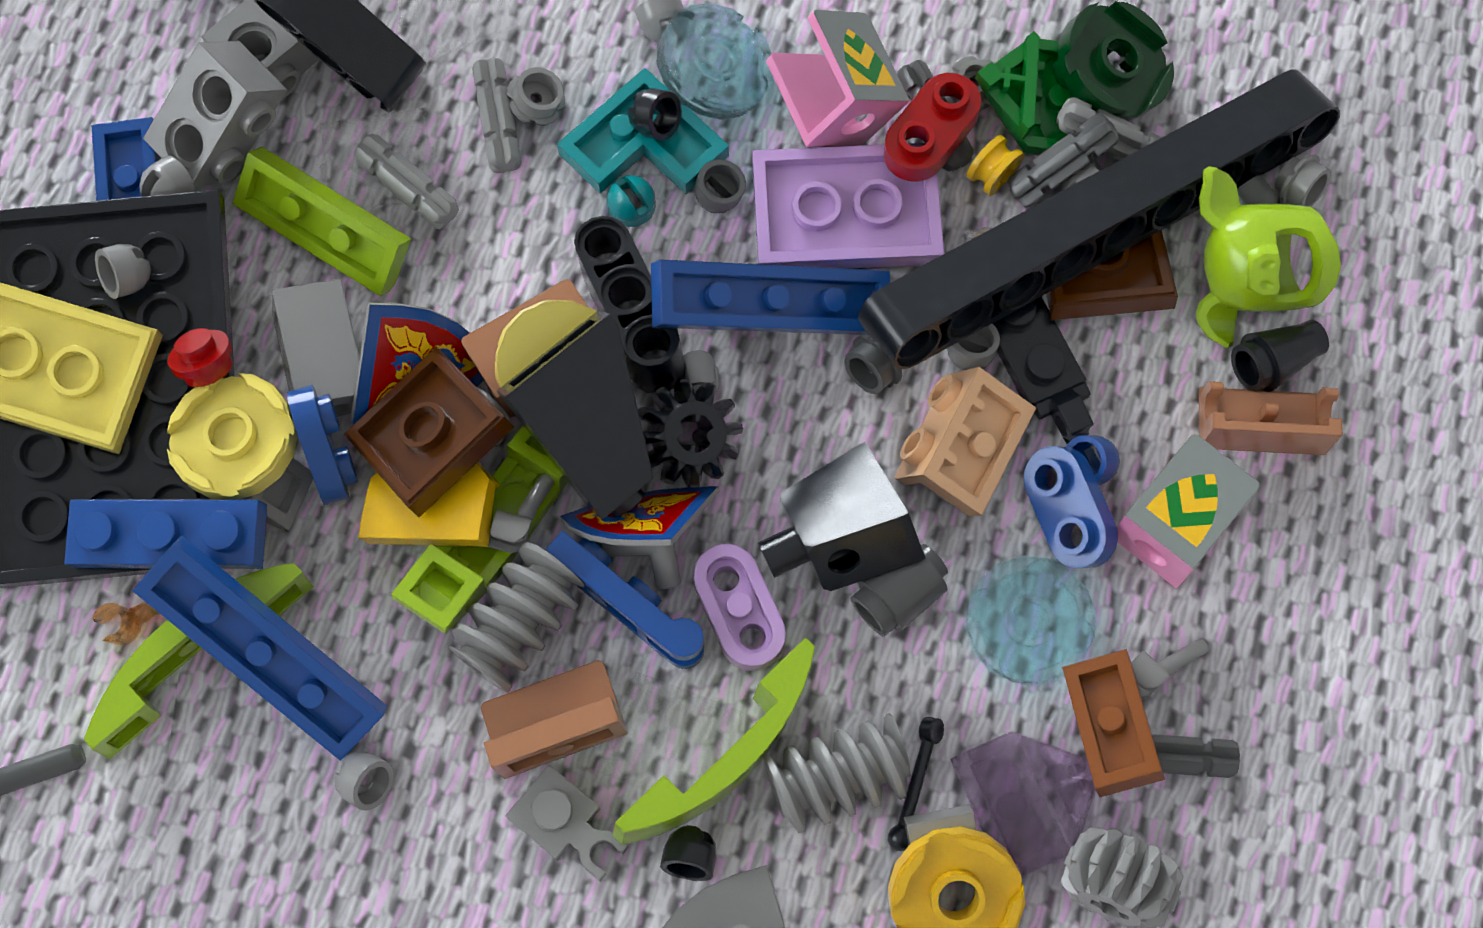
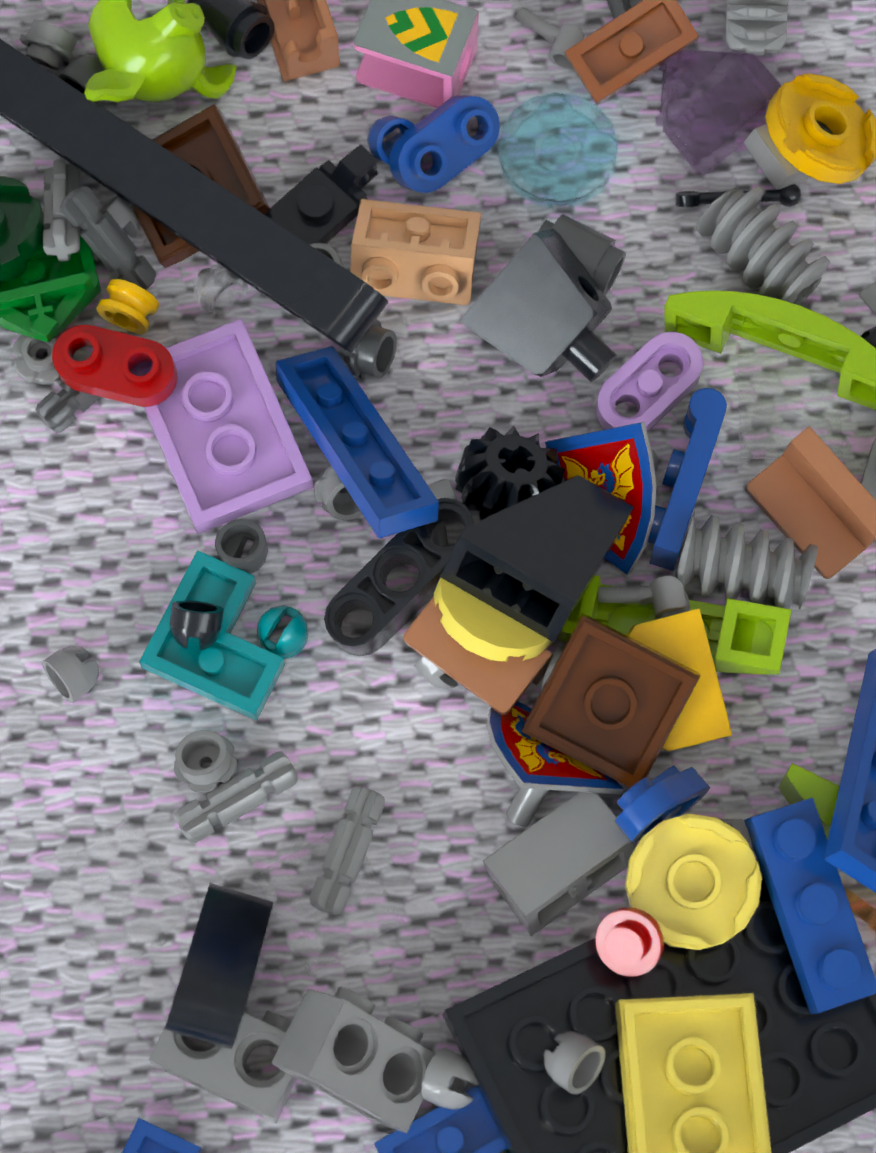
camera: 110 degrees left, 0 degrees up
(321, 221) = (422, 917): lime plate -> none
(714, 61) = (107, 598): clear light blue tile -> none
(848, 82) = (119, 484): bright pink piece -> none

